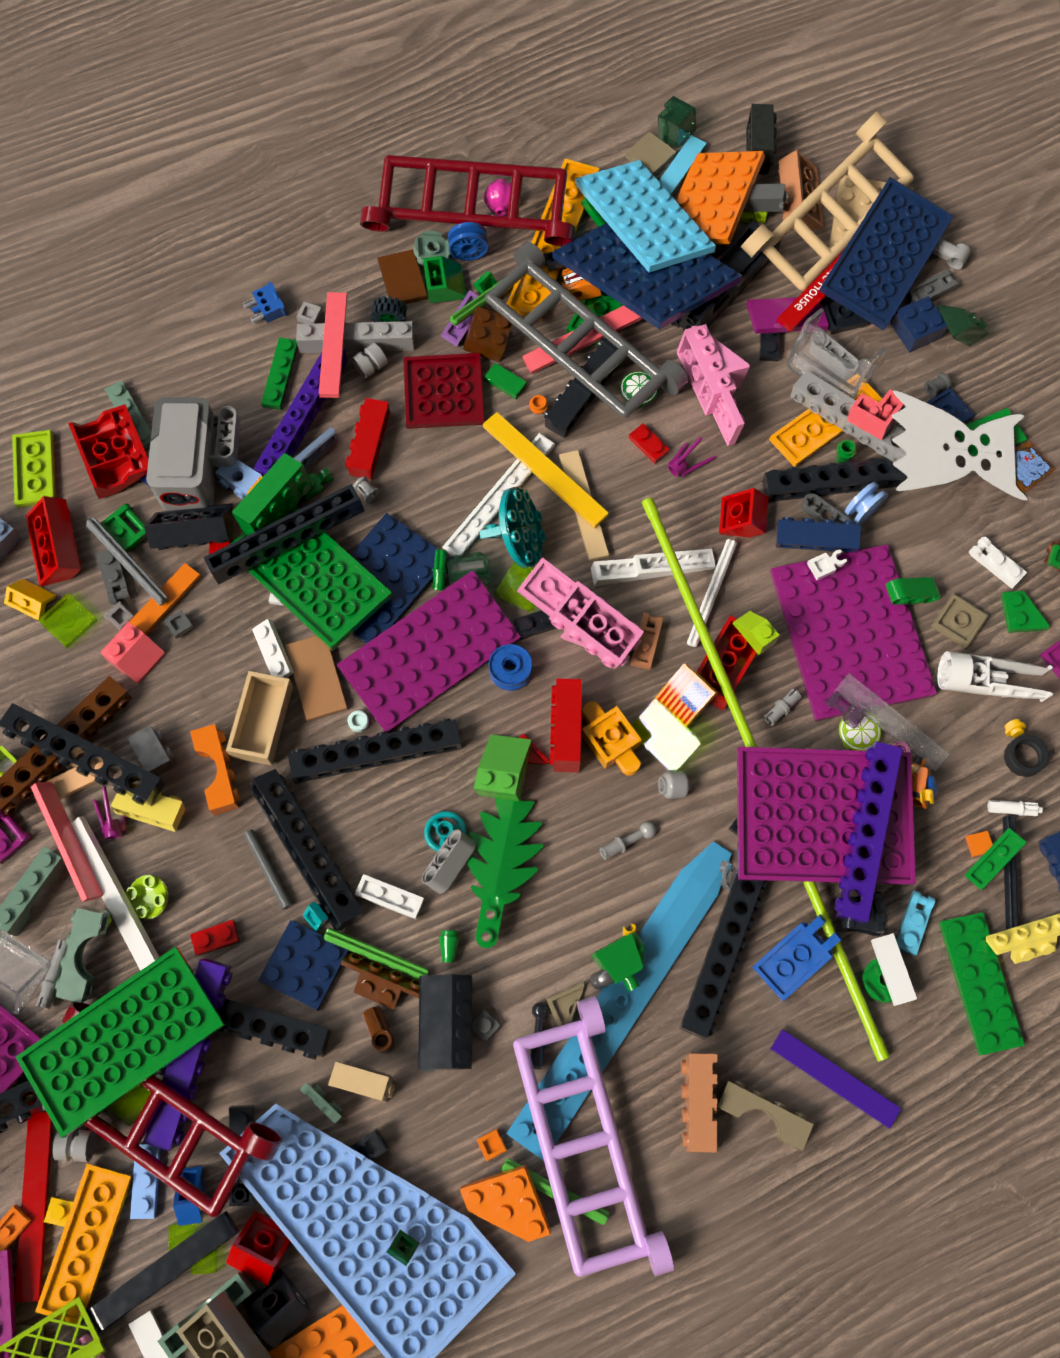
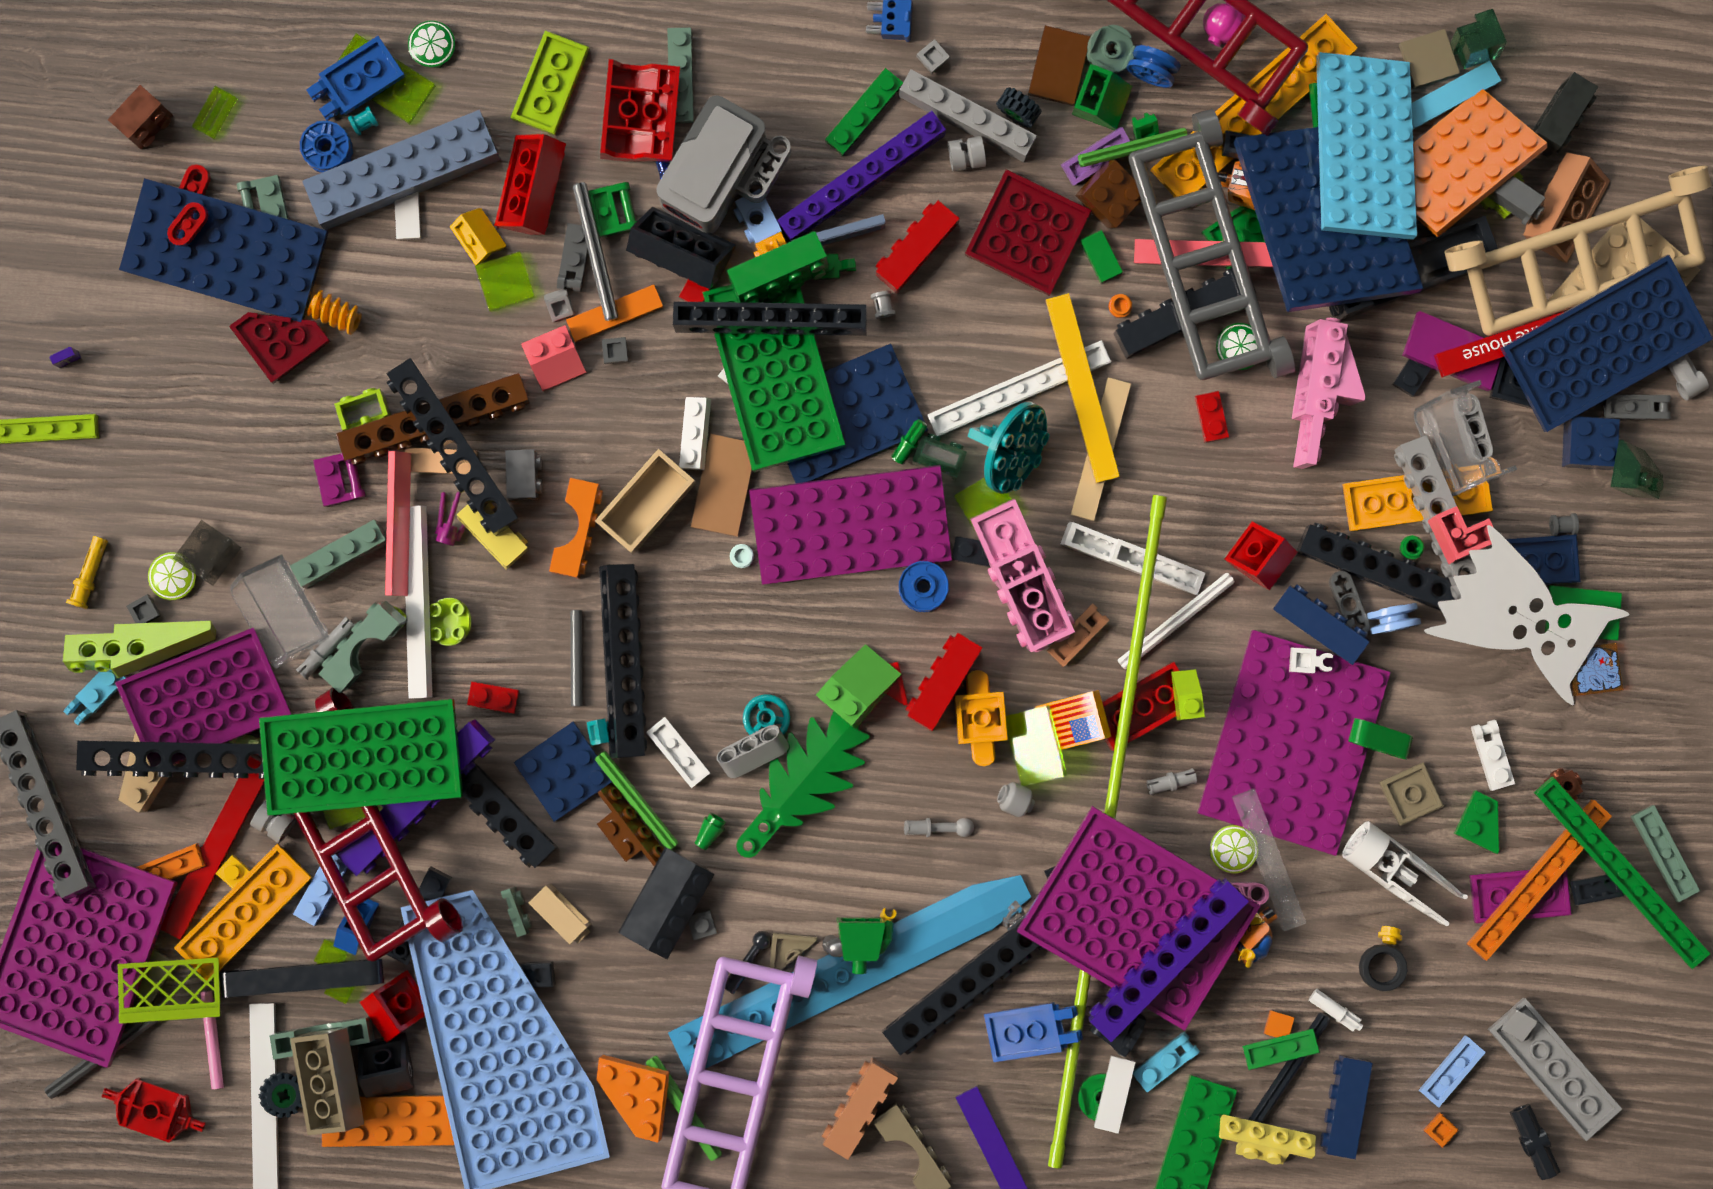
camera: 25 degrees right, 15 degrees up
(333, 345) = (935, 120): coral tile -> none
(344, 764) = (658, 578): black brick -> none
(377, 1028) = (601, 870): reddish brown piece -> none
(403, 1247) = (521, 1080): dark green tile -> none
(491, 1145) = (649, 1034): orange tile -> none
(678, 464) = (1226, 460): magenta plant -> none
(851, 714) = (1233, 830): clear purple leg -> none

